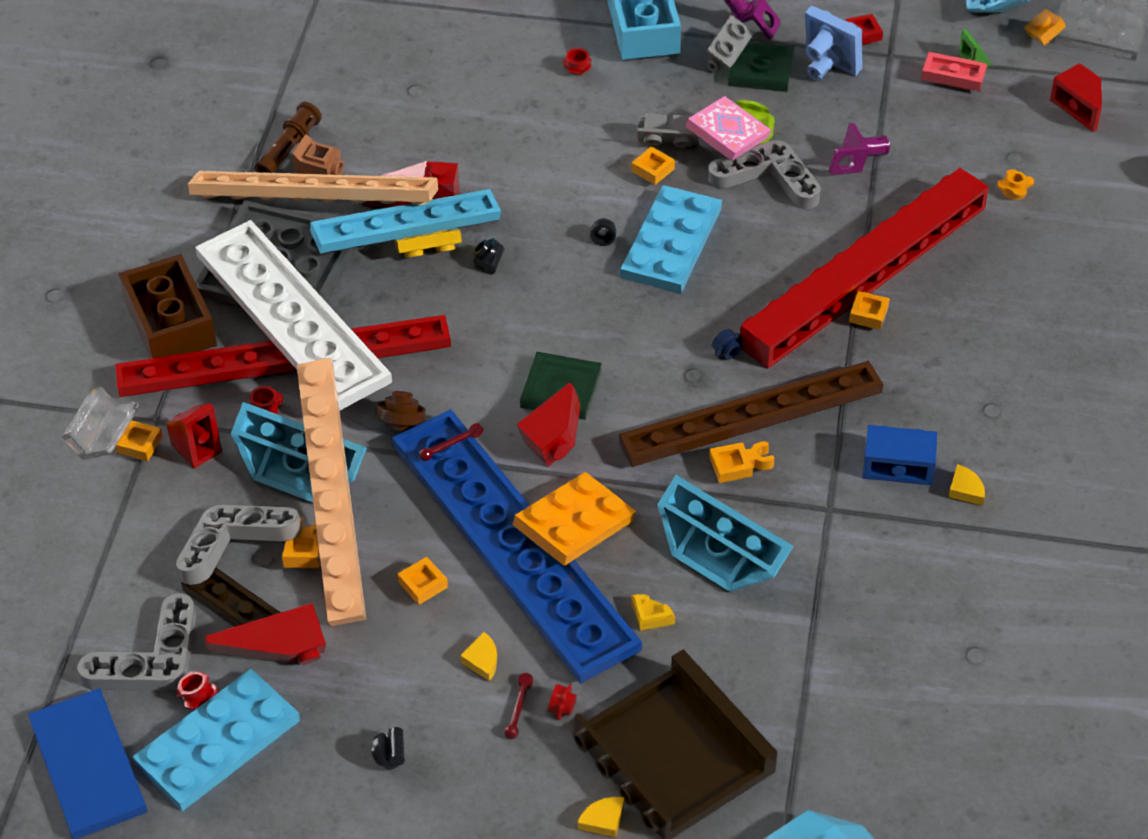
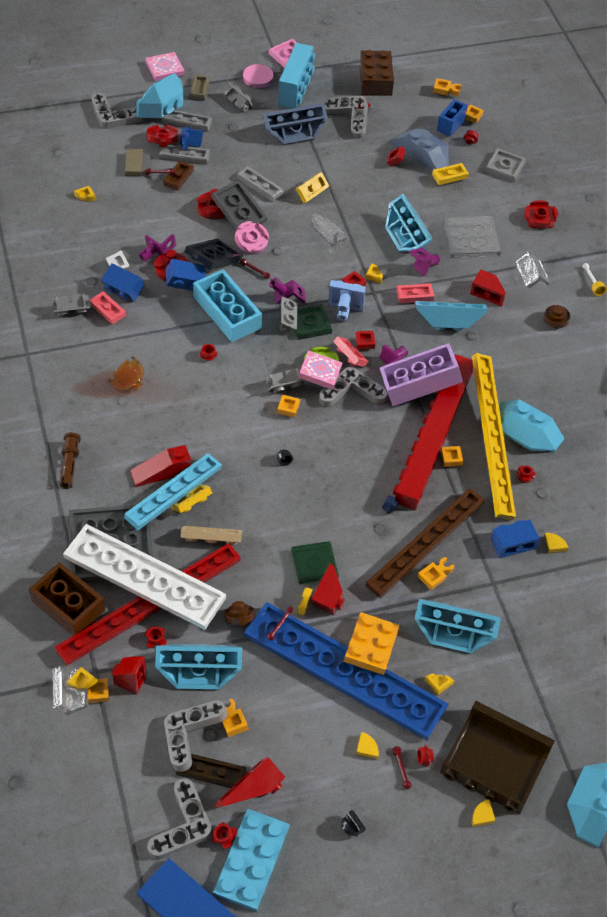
camera: 30 degrees left, 5 degrees up
(120, 414) = (82, 680): none -> yellow tile
(314, 186) = (106, 488): light nougat plate -> none
(316, 158) = (97, 469): nougat window -> none
(331, 493) = (236, 682): light nougat plate -> none
(422, 580) = (310, 714): light orange plate -> none
(427, 297) = (211, 535): none -> tan plate
(434, 54) = (128, 376): none -> clear orange cylinder
(488, 255) = (228, 495): black plate -> none
(510, 433) = (307, 595): none -> yellow tile
(671, 239) = (322, 448): medium azure plate -> none
(796, 121) = (346, 348): none -> coral plate
(831, 112) = (365, 340): none -> red plate
(880, 176) = (421, 374): none -> lavender brick
(905, 29) = (374, 274): none -> yellow tile
(951, 302) = (493, 437): none -> yellow plate
(970, 49) = (417, 277): bright green slope -> none
(979, 373) = (525, 477): none -> red plate
(987, 112) = (451, 315): none -> medium azure wedge
(995, 27) = (424, 260): none -> magenta bracket
(1015, 184) = (482, 349): light orange plate -> none
(1025, 308) = (529, 426): none -> medium azure wedge
(1044, 26) = (447, 250): light orange plate -> none

